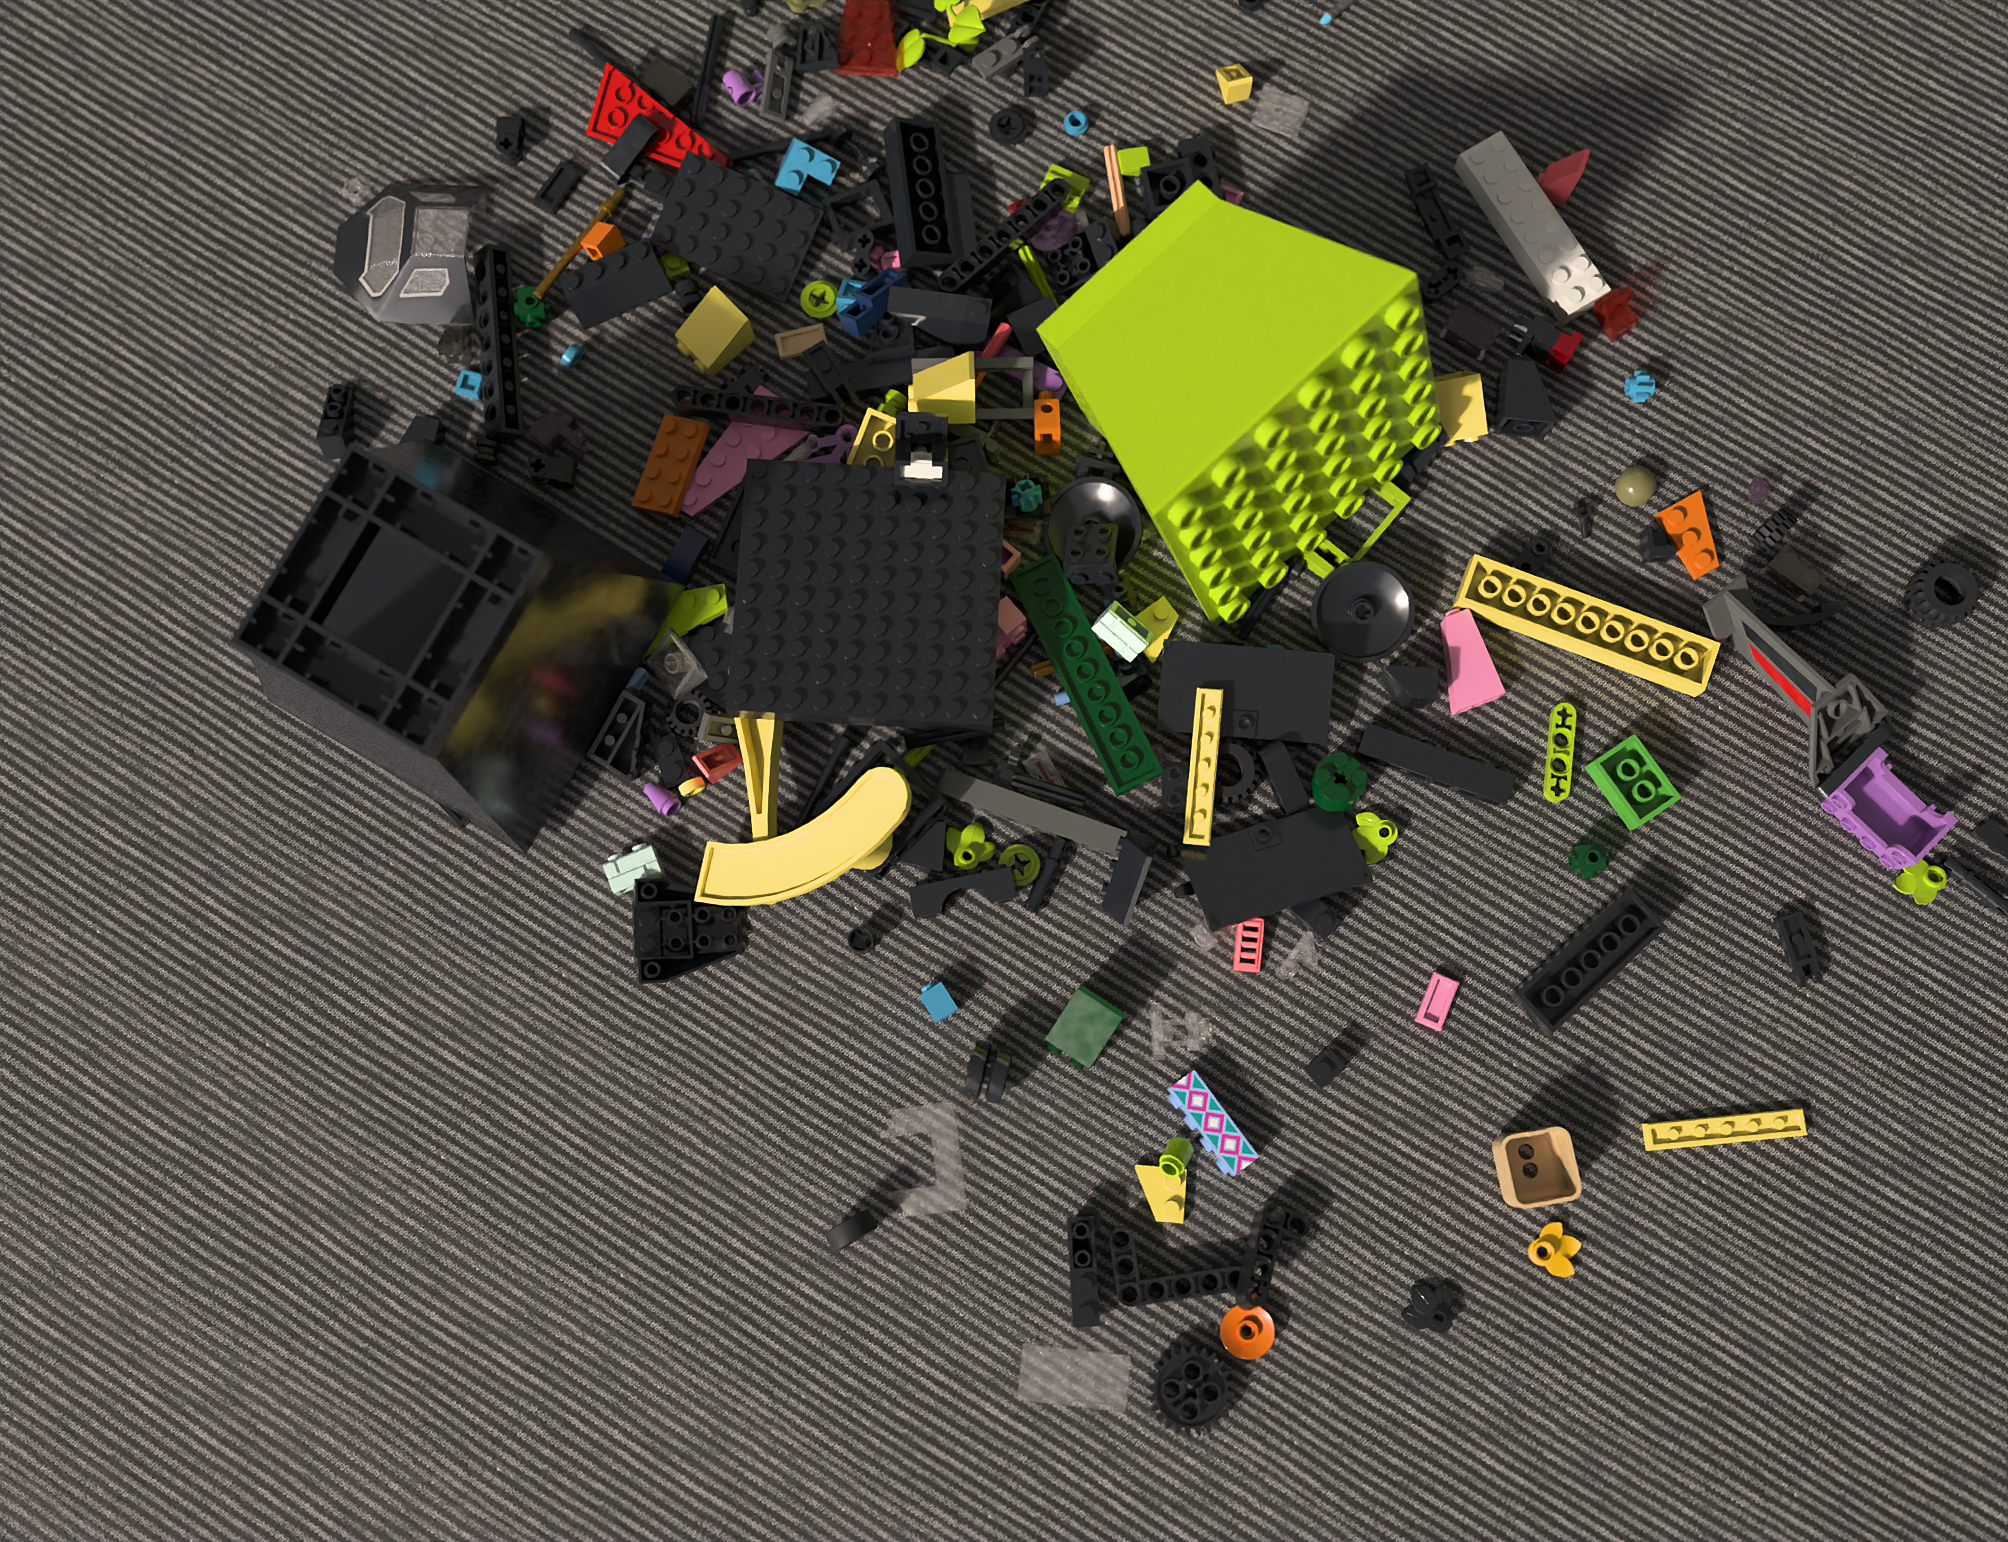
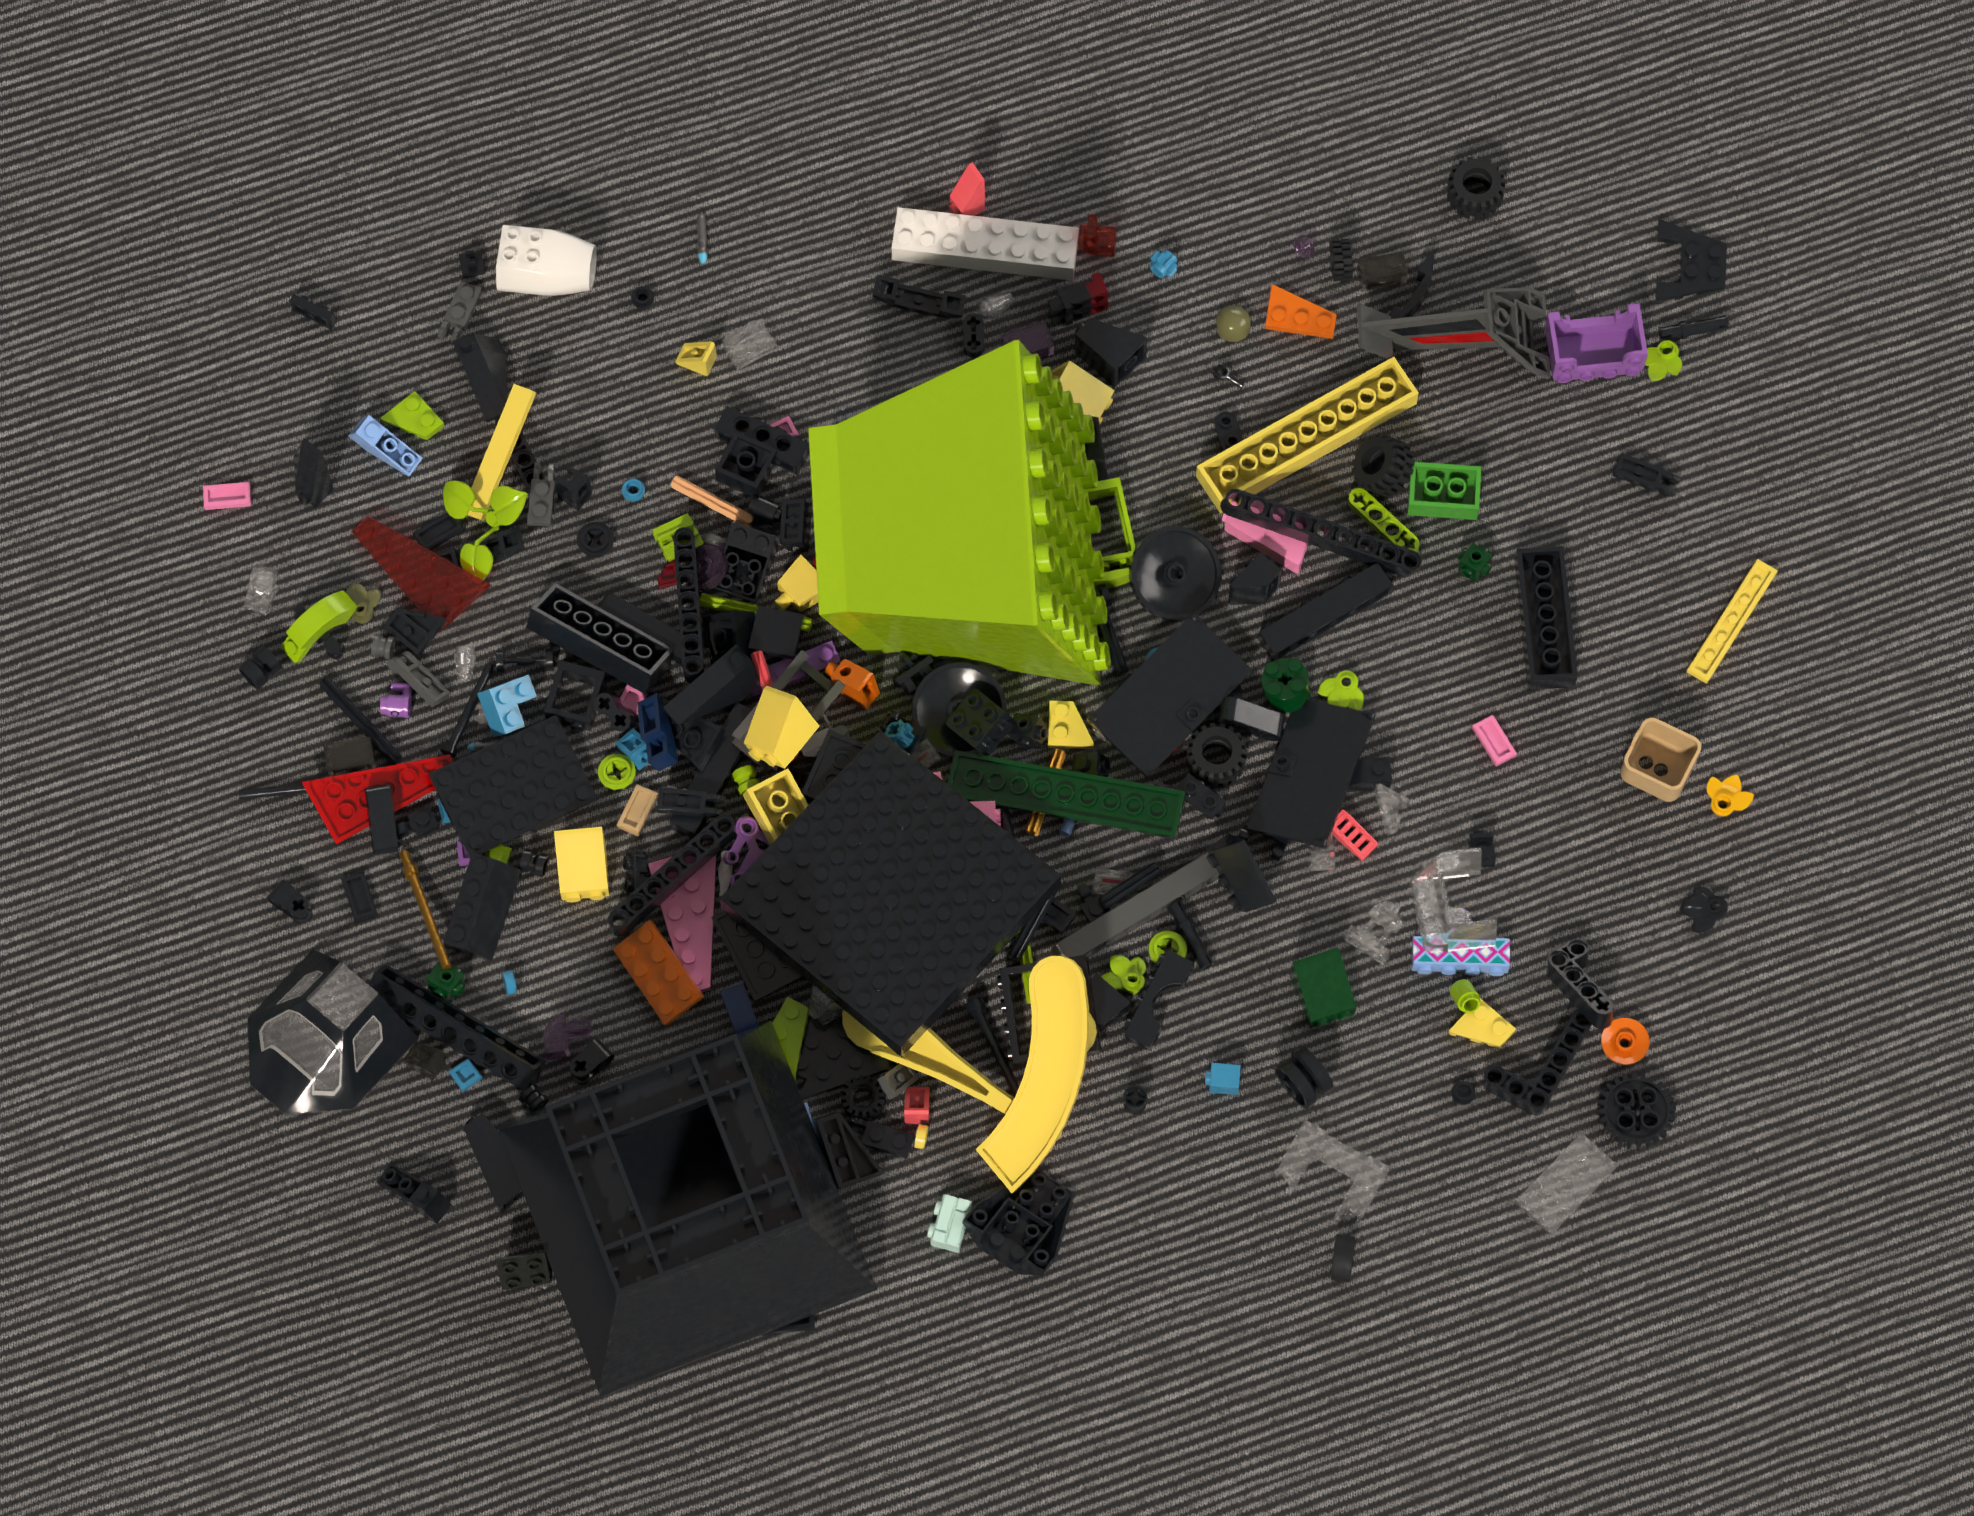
camera: 55 degrees left, 10 degrees down
(352, 186) = (226, 1046): clear plate -> none
(603, 240) = (439, 893): orange brick -> none
(663, 799) = (912, 1165): medium lavender cone -> none
(676, 664) = (822, 1074): clear slope -> none
(921, 449) = (817, 774): black brick -> none
(1083, 1271) = (1496, 1121): black slope -> none
(1122, 631) = (1056, 745): light aqua brick -> none
(1132, 159) = (700, 471): lime slope -> none
(1203, 766) = (1202, 763): light yellow tile -> none
(1216, 1087) = (1440, 926): none -> clear windscreen
(1491, 697) = (1309, 534): none -> black beam
(1611, 711) = (1380, 477): none -> black tyre
(1655, 547) = (1287, 345): black panel -> none
(1852, 761) = (1545, 337): black beam -> none

